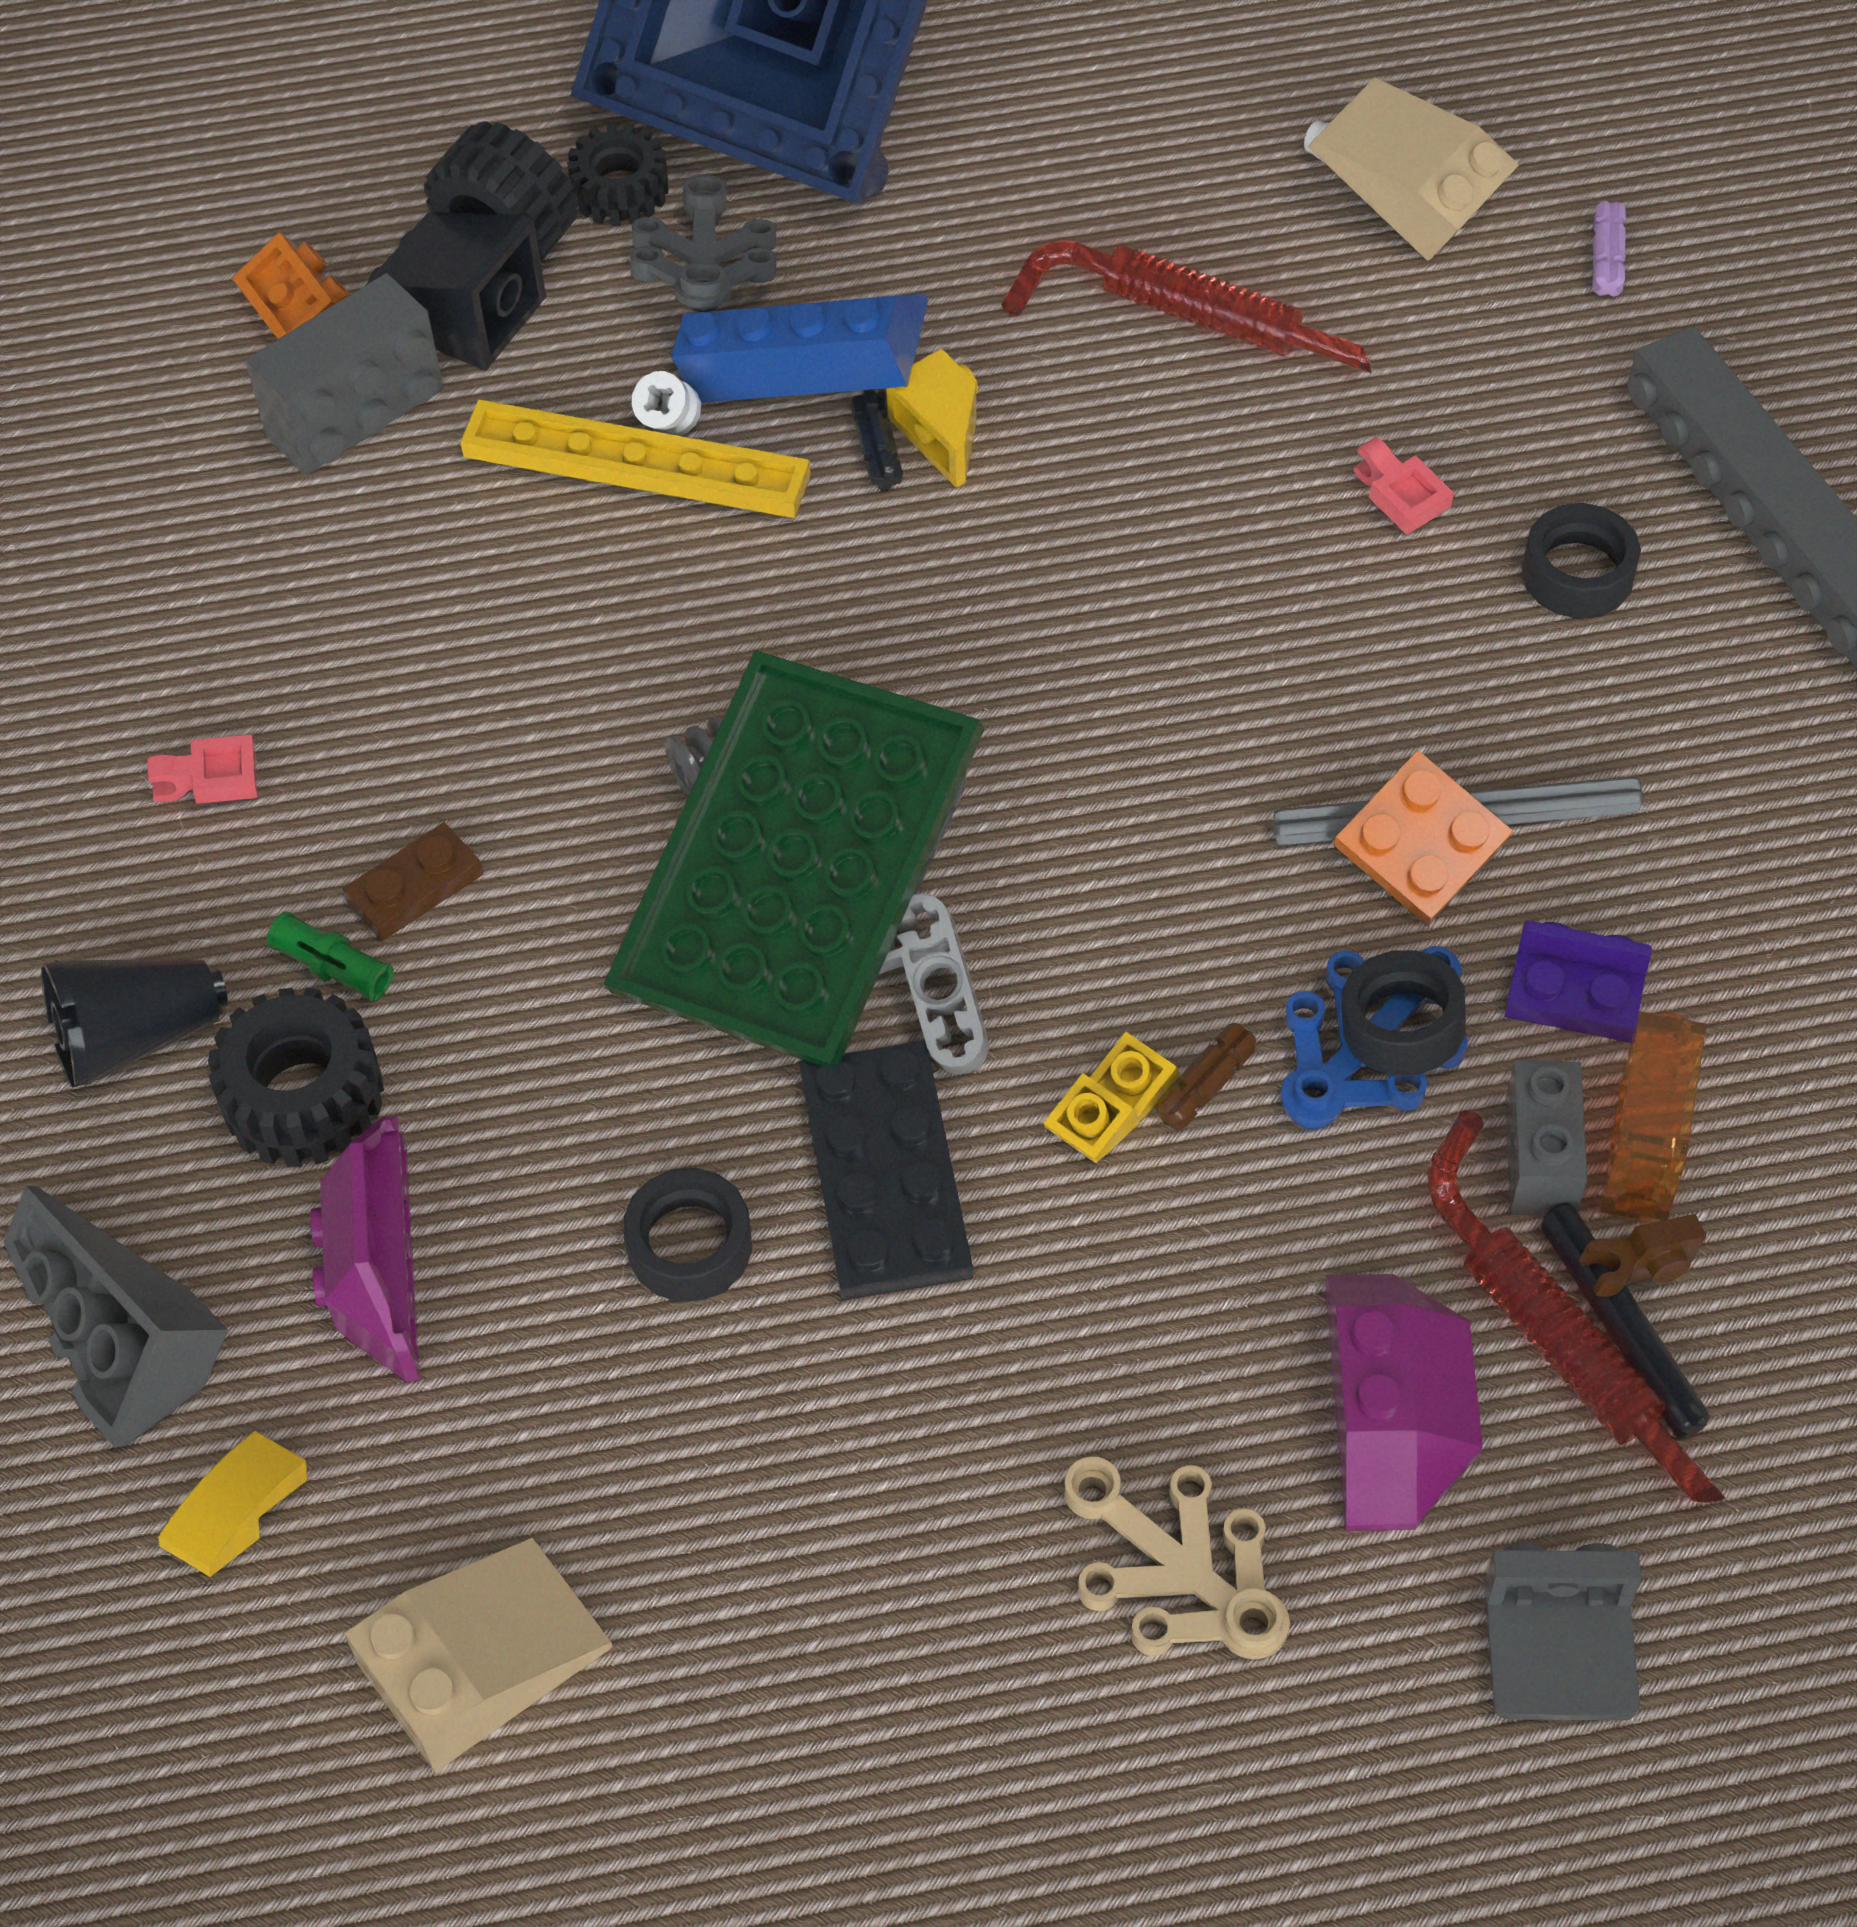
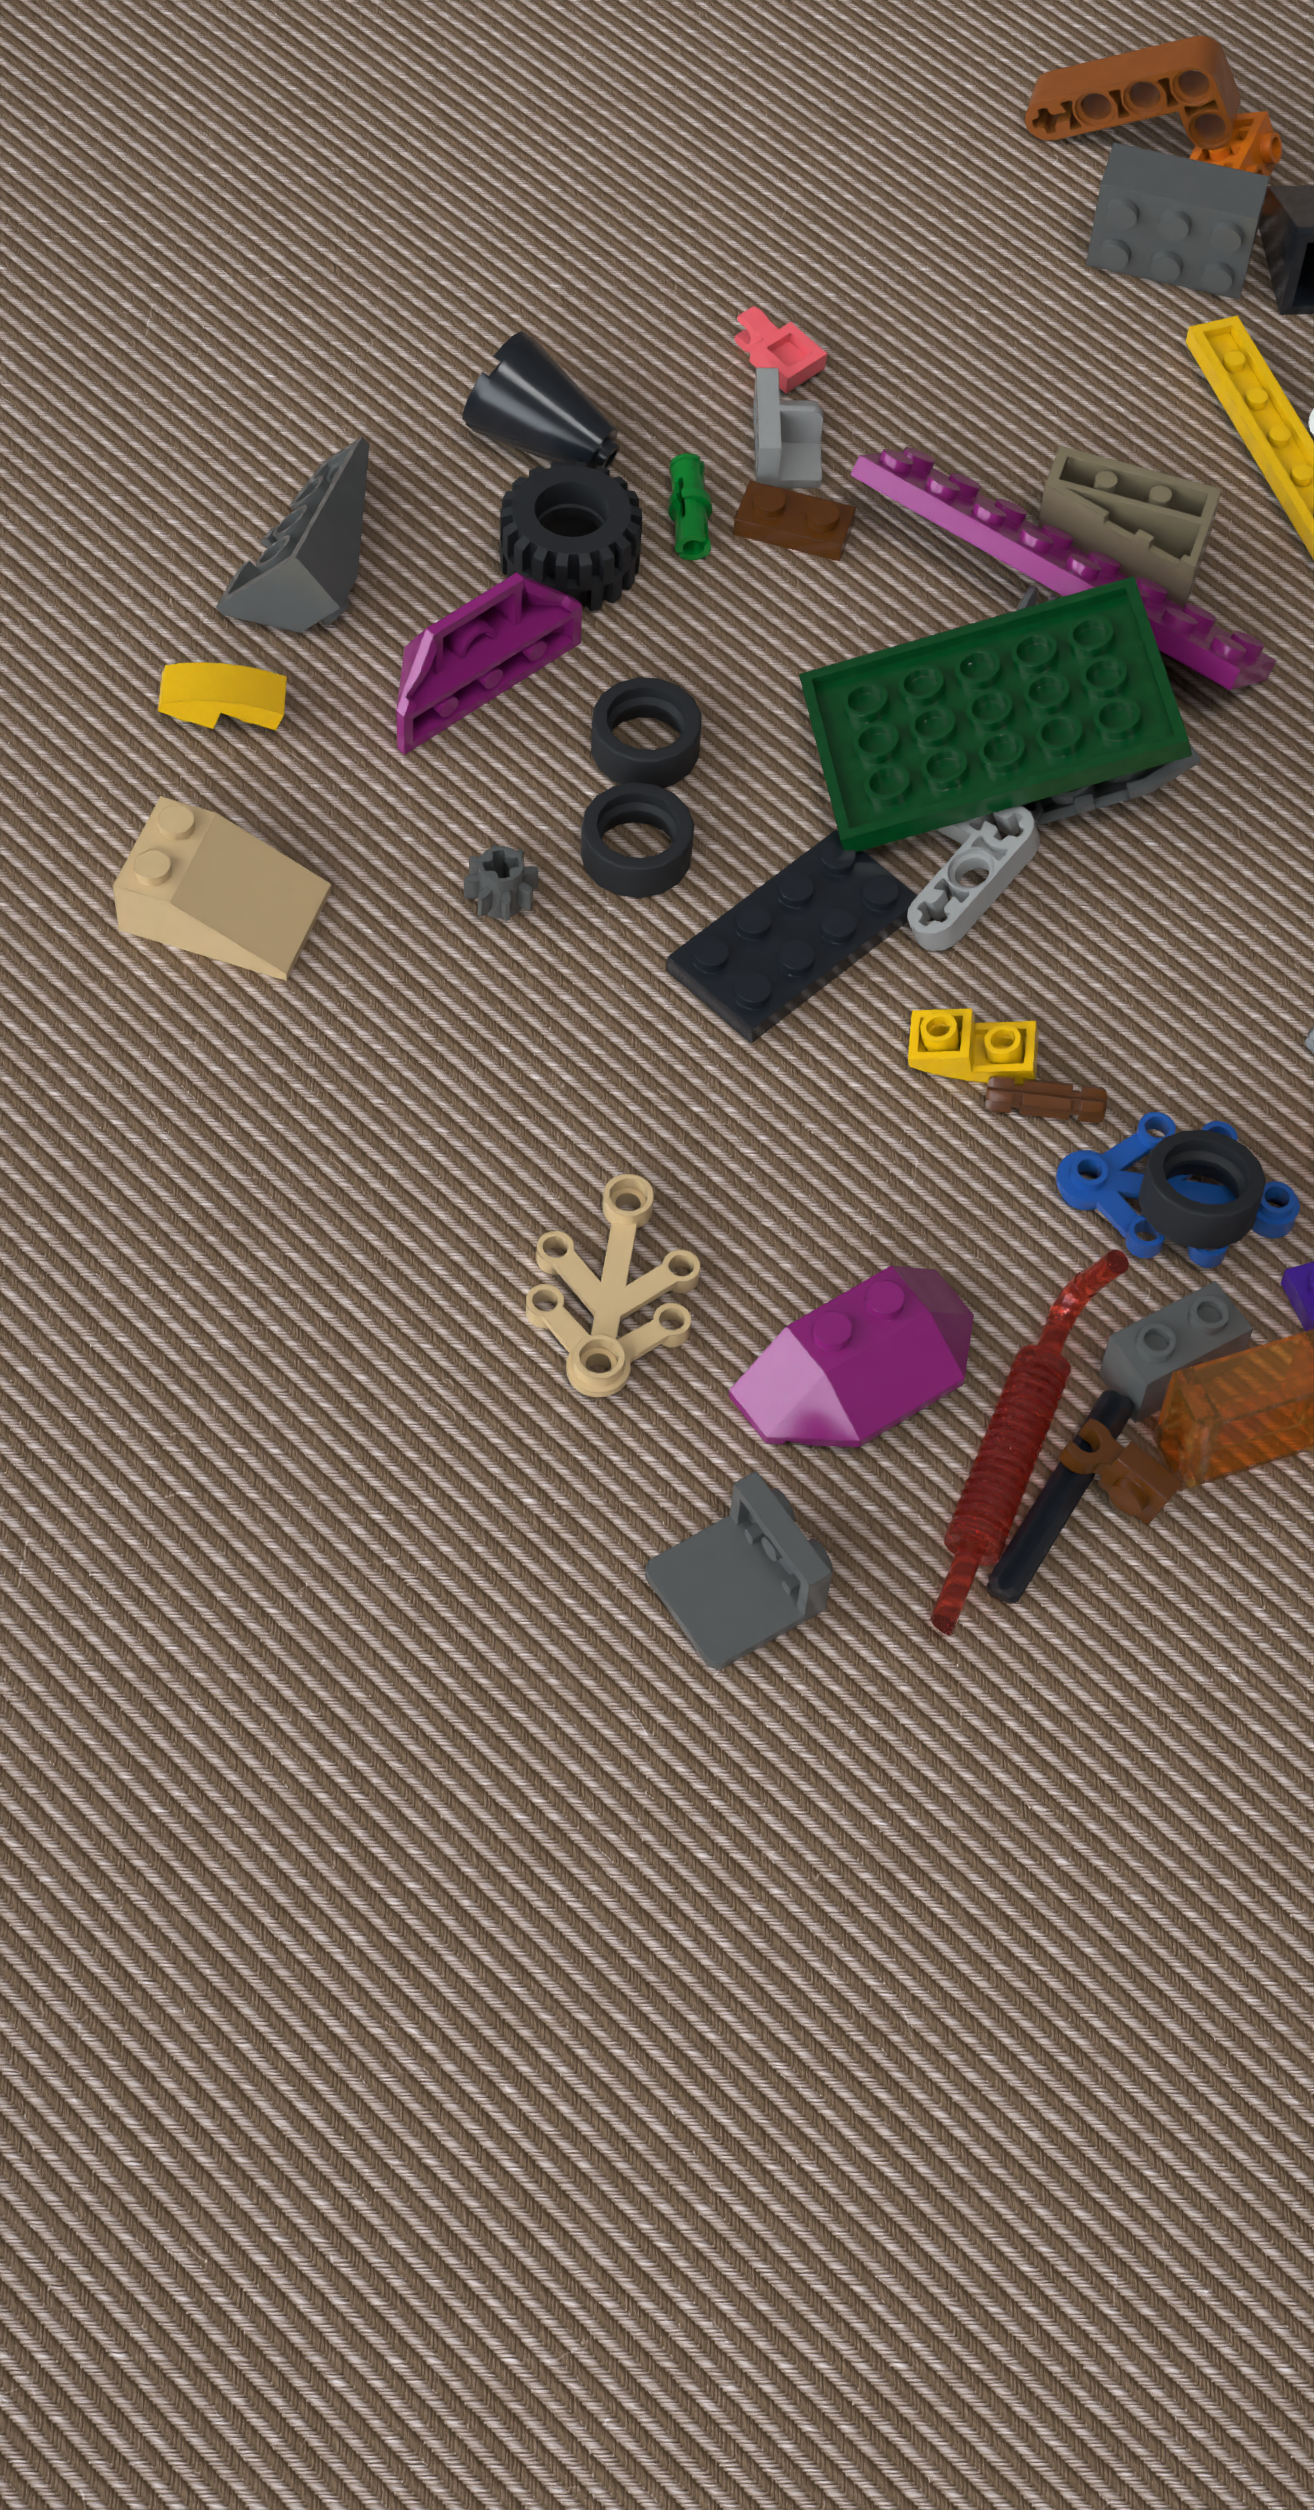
camera: 50 degrees right, 0 degrees up
(171, 311) = (1116, 93): none -> dark orange beam
(309, 828) = (785, 436): none -> light grey panel
(567, 1109) = (646, 699): none -> black tyre
(638, 707) = (1051, 559): none -> magenta plate
(650, 620) = (1134, 515): none -> dark tan wedge
(654, 1382) = (501, 882): none -> dark grey gear

